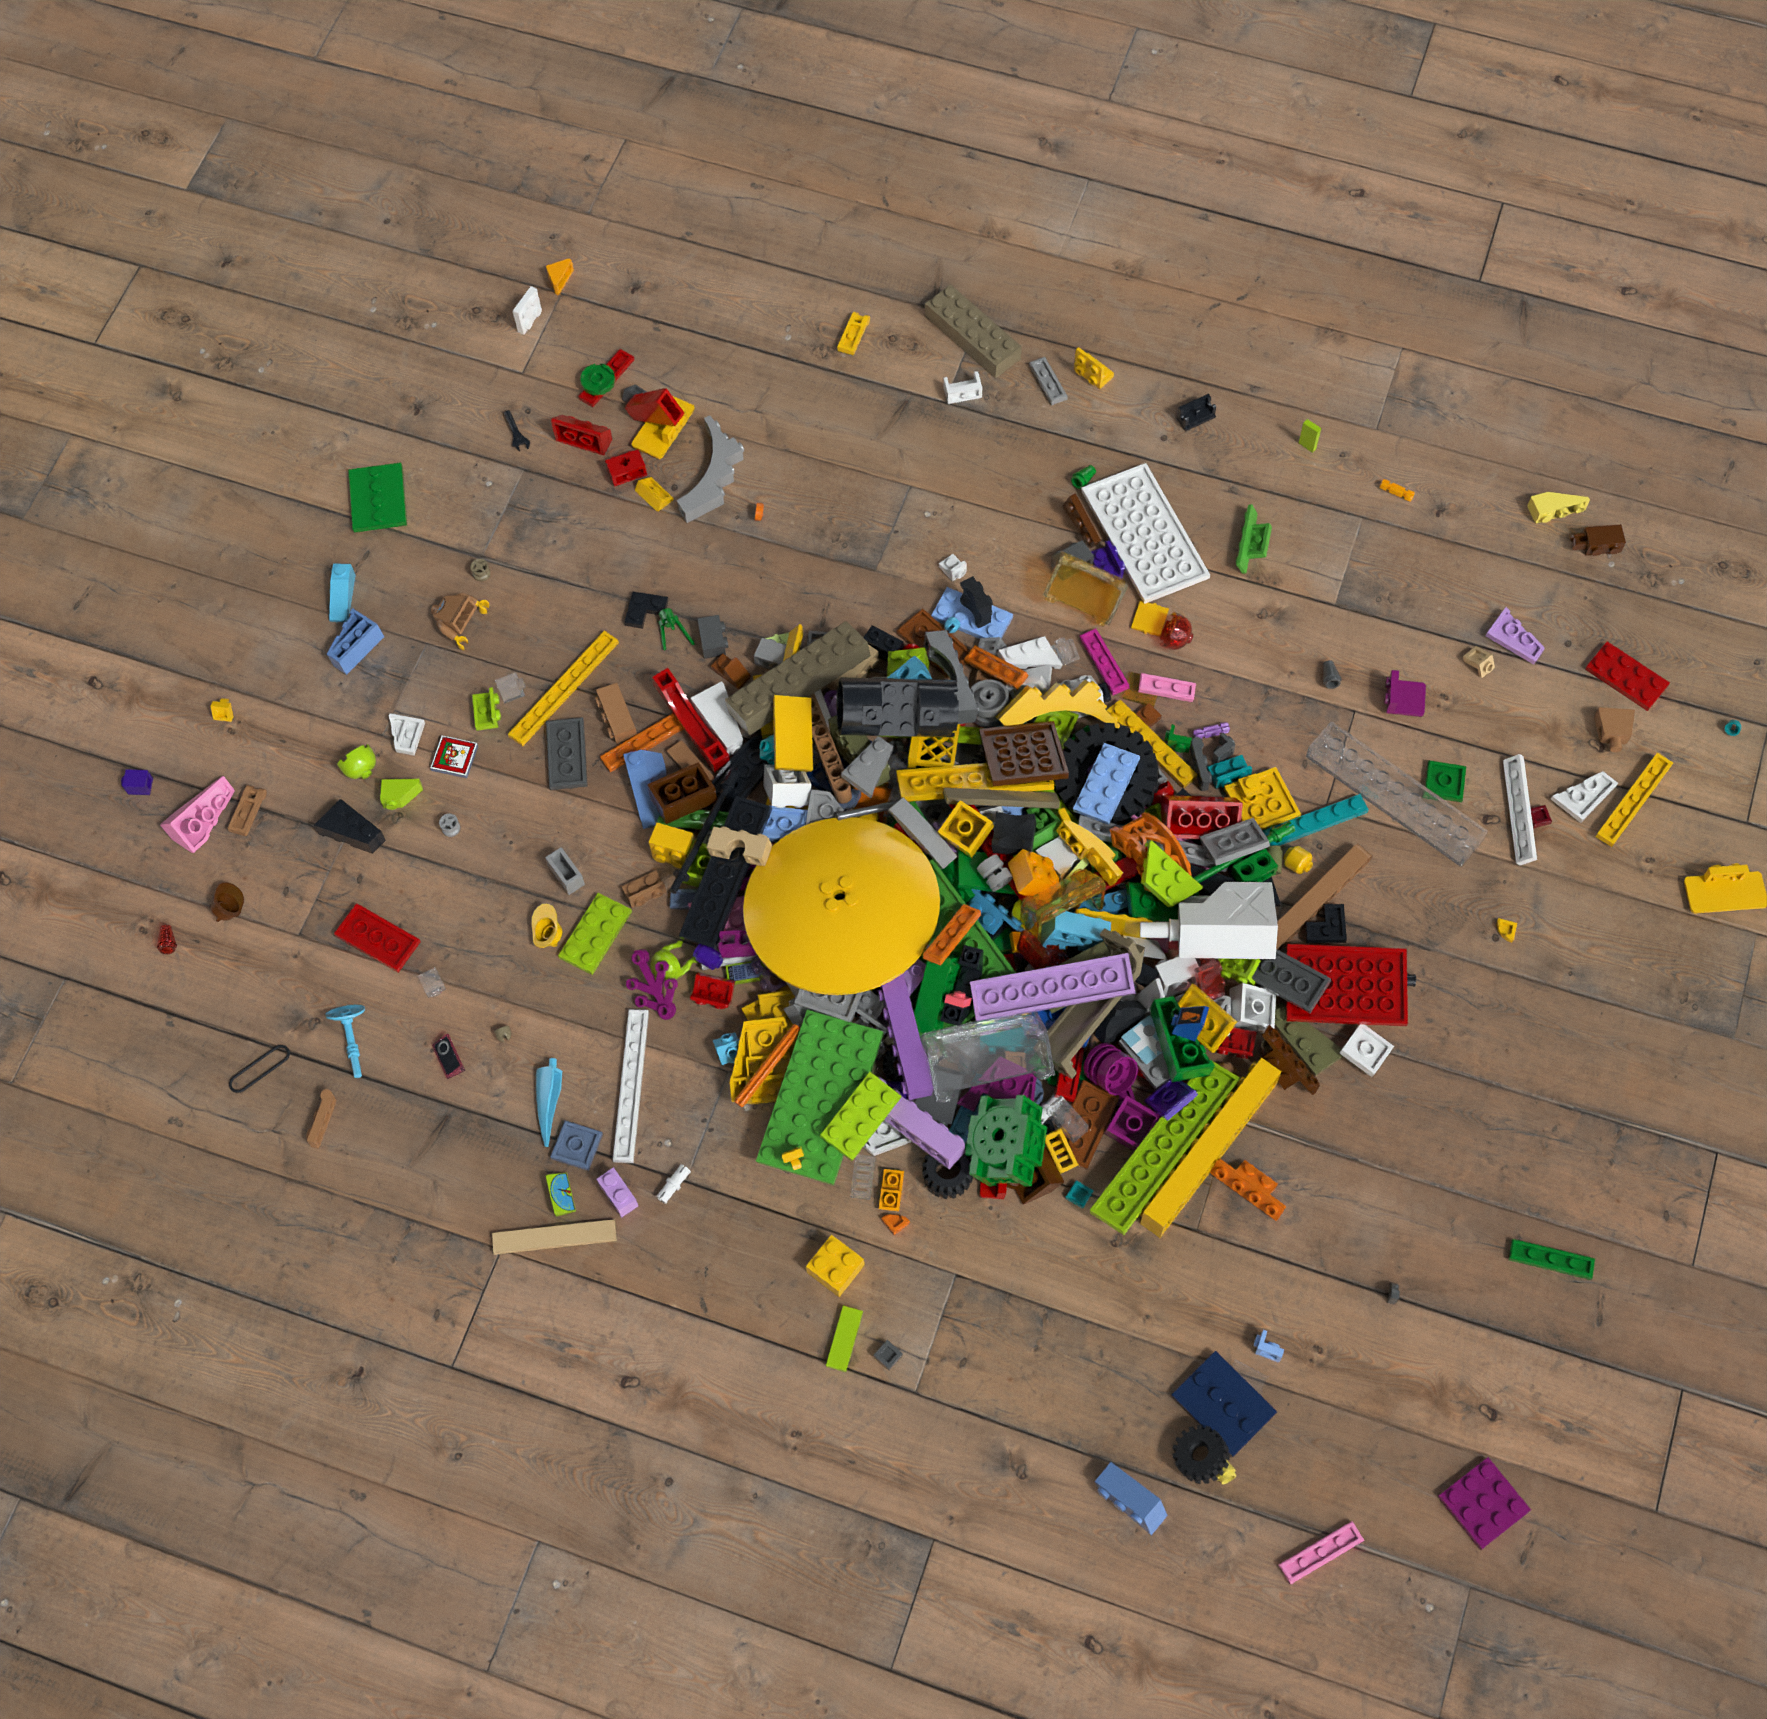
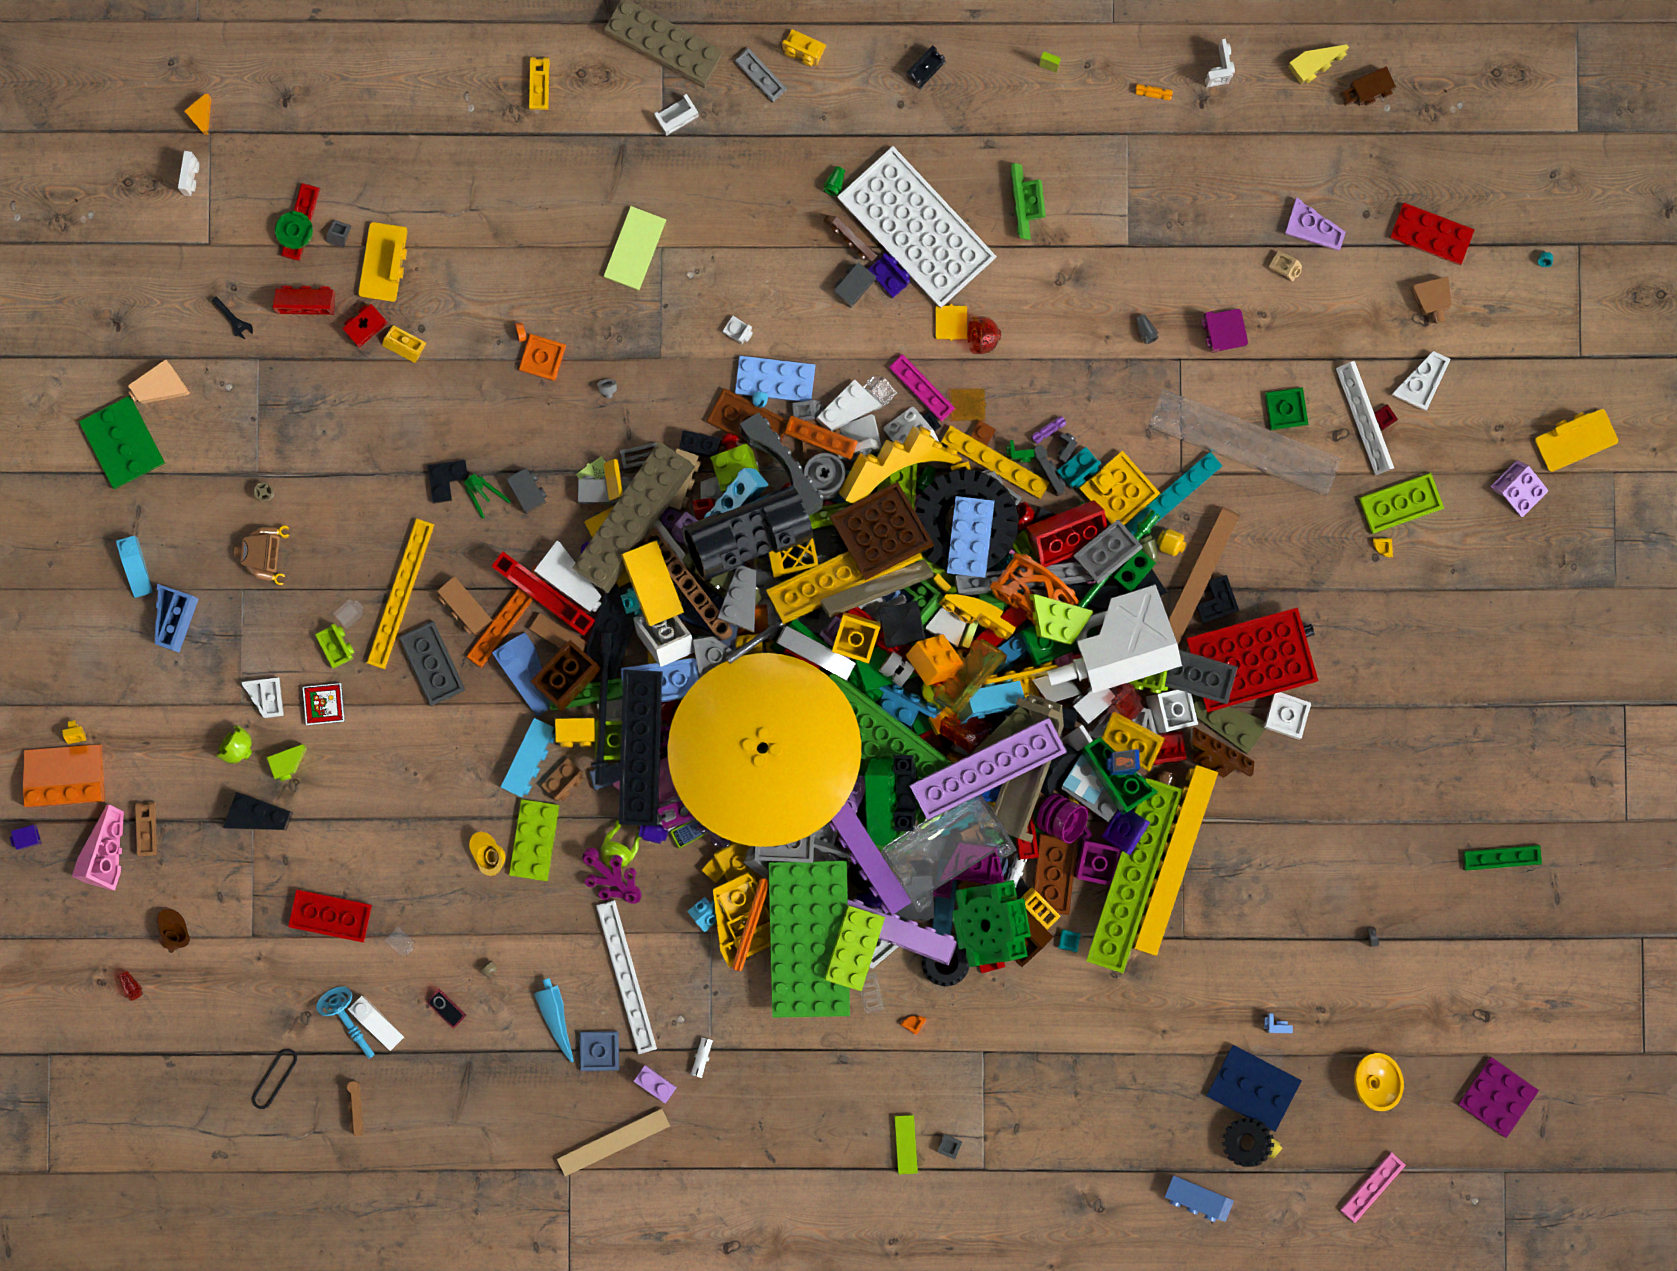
camera: 25 degrees left, 20 degrees up
(195, 744) = (63, 776): none -> orange slope
(375, 1046) = (375, 1022): none -> white slope
(428, 461) = (158, 385): none -> light nougat slope
(451, 821) = (348, 780): light grey wheel -> none
(560, 1194) = (603, 1101): slope -> none
(565, 871) = (482, 790): light grey brick -> none
(618, 859) = (528, 758): none -> medium azure brick
(655, 407) = (371, 254): red slope -> none
(709, 492) = (460, 275): light grey arch -> none
(713, 991) = (668, 862): red bracket -> none
(725, 840) = (629, 722): tan arch -> none
(731, 670) = (558, 520): dark orange slope -> none
(770, 538) = (542, 357): none -> orange tile
(793, 1156) = (807, 1006): yellow tile -> none
(818, 576) = (607, 387): none -> light grey tile
(835, 1265) = (875, 1084): yellow brick -> none
(886, 478) = (635, 248): none -> yellowish green tile
(891, 1190) = (900, 995): light orange slope -> none
(951, 934) = (879, 748): orange tile -> none
(958, 999) = (904, 807): coral plate -> none
(976, 601) = (773, 366): black brick -> none
(1067, 1119) = (1038, 880): clear brick -> none
(1085, 588) = (880, 315): clear yellow windscreen -> none
(1166, 687) = (991, 396): bright pink tile -> none
(1251, 1185) = (1221, 880): orange bracket -> none
(1359, 1439) = (1385, 1079): none -> yellow dish
(1463, 487) = (1223, 74): none -> white bracket
(1535, 896) = (1401, 503): none -> lime tile
(1634, 799) = (1470, 370): yellow plate -> none
(1660, 916) = (1520, 487): none -> lavender bracket

